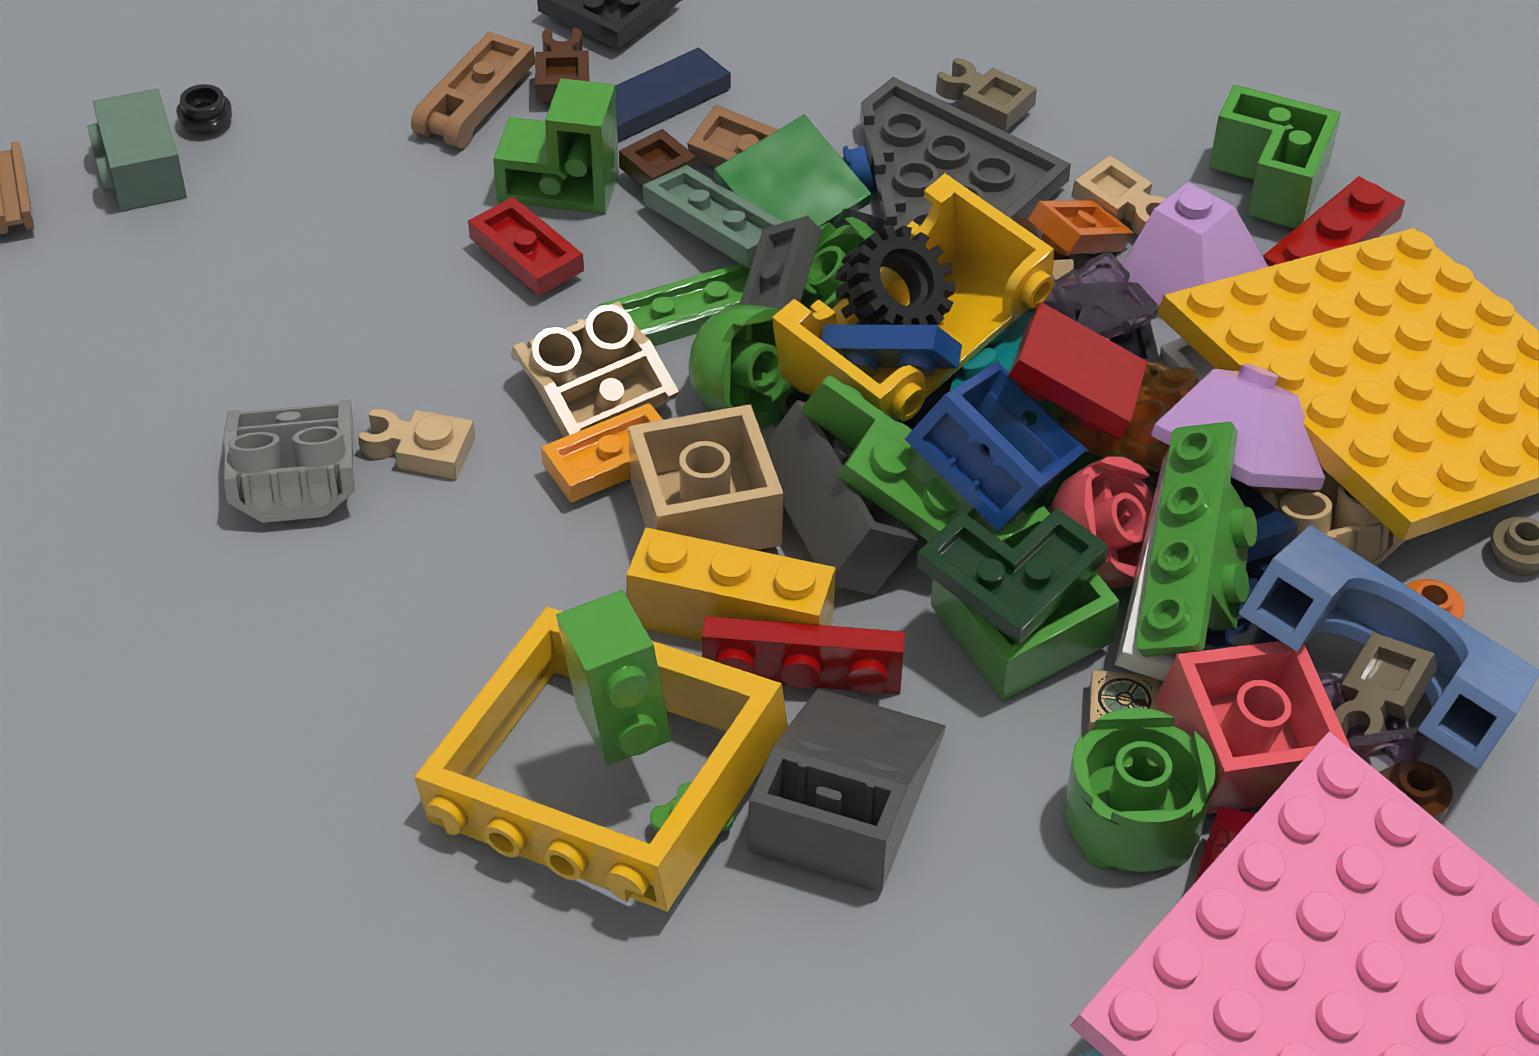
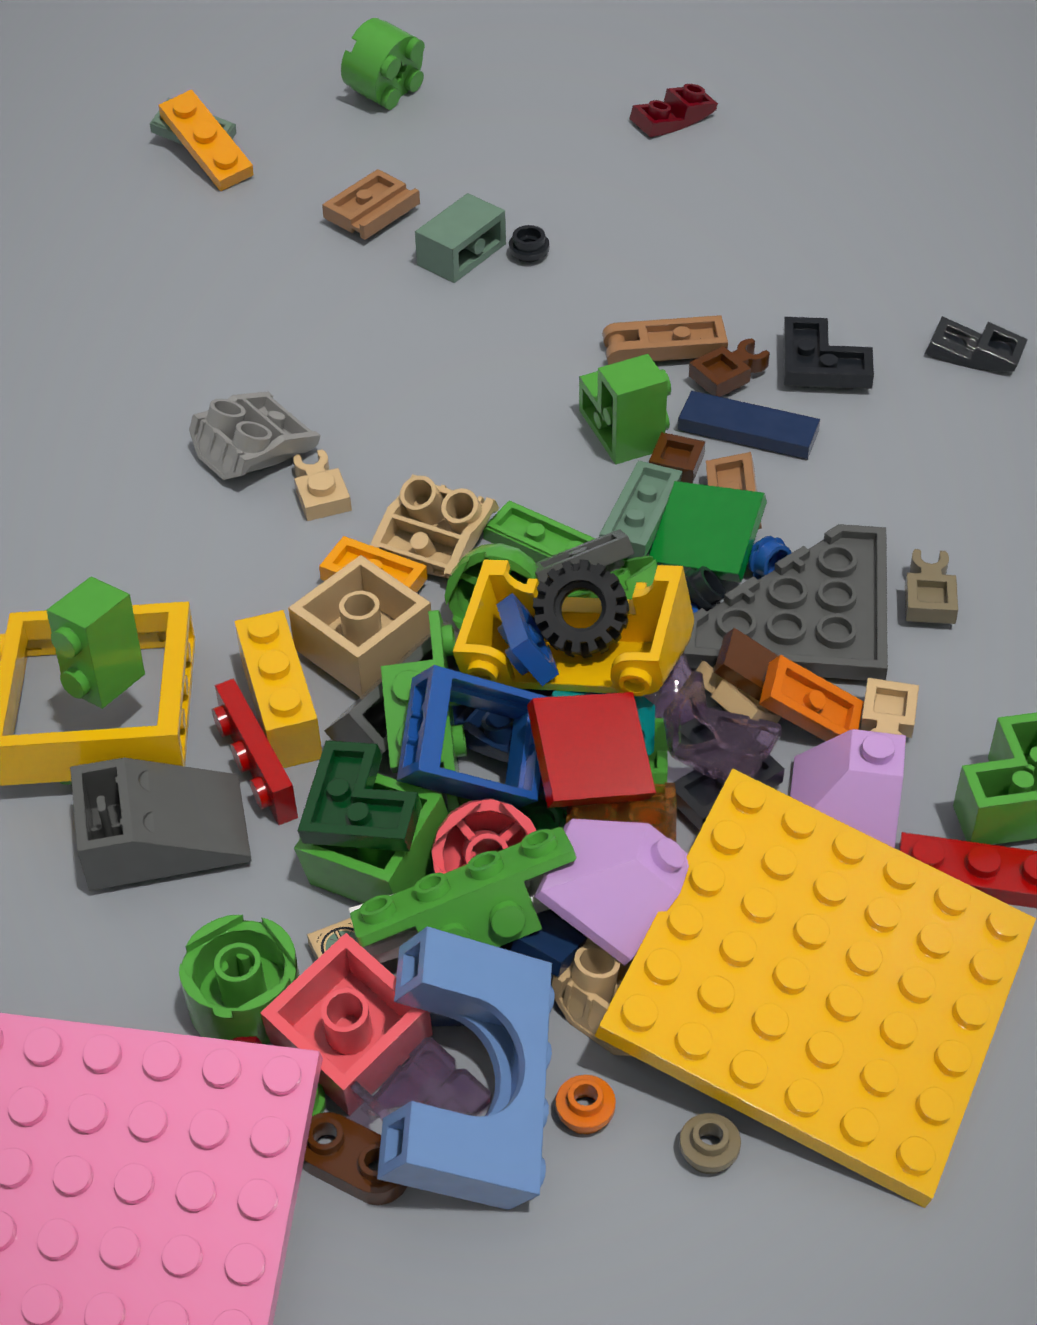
camera: 60 degrees right, 0 degrees up
(526, 246) = (532, 439): red plate -> none
(1384, 682) = (449, 1085): dark tan plate -> none

